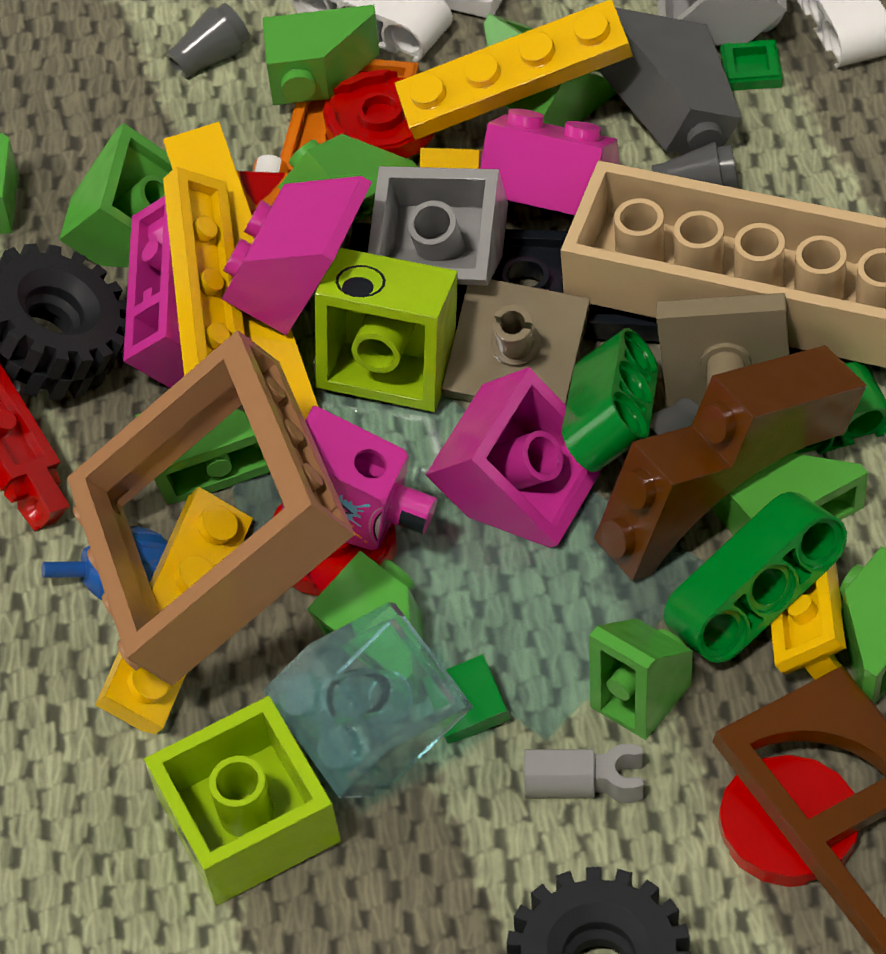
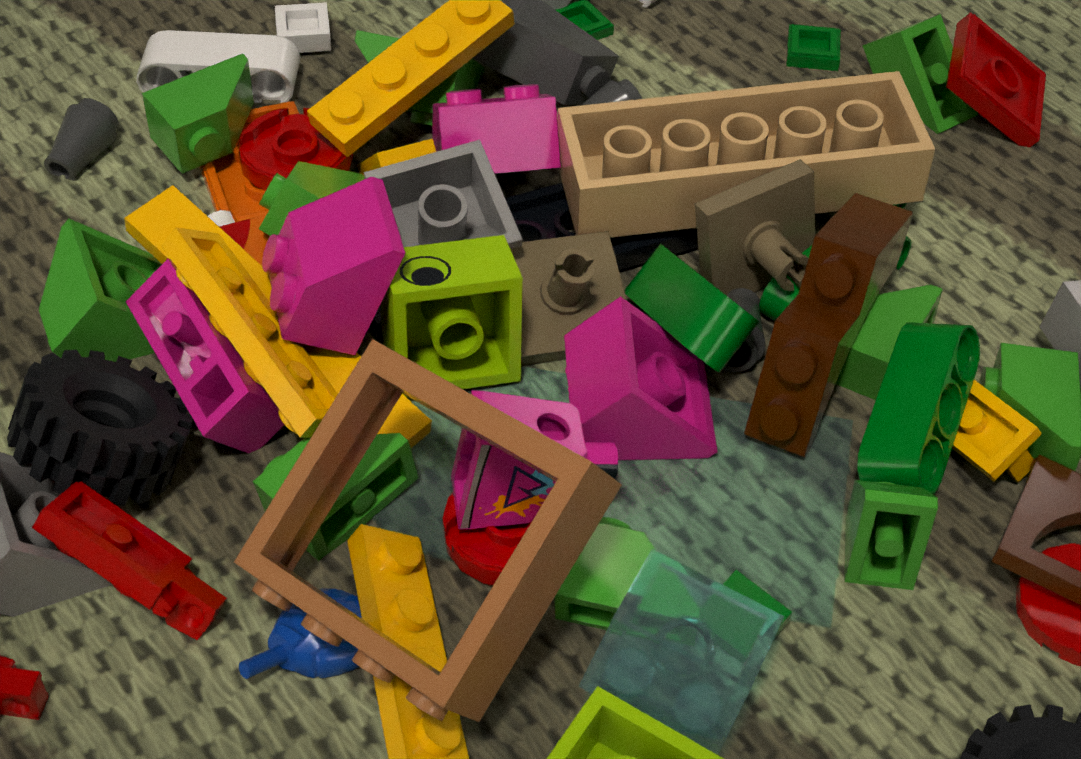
camera: 35 degrees left, 5 degrees down
(583, 773) = (889, 642): light grey bar -> none

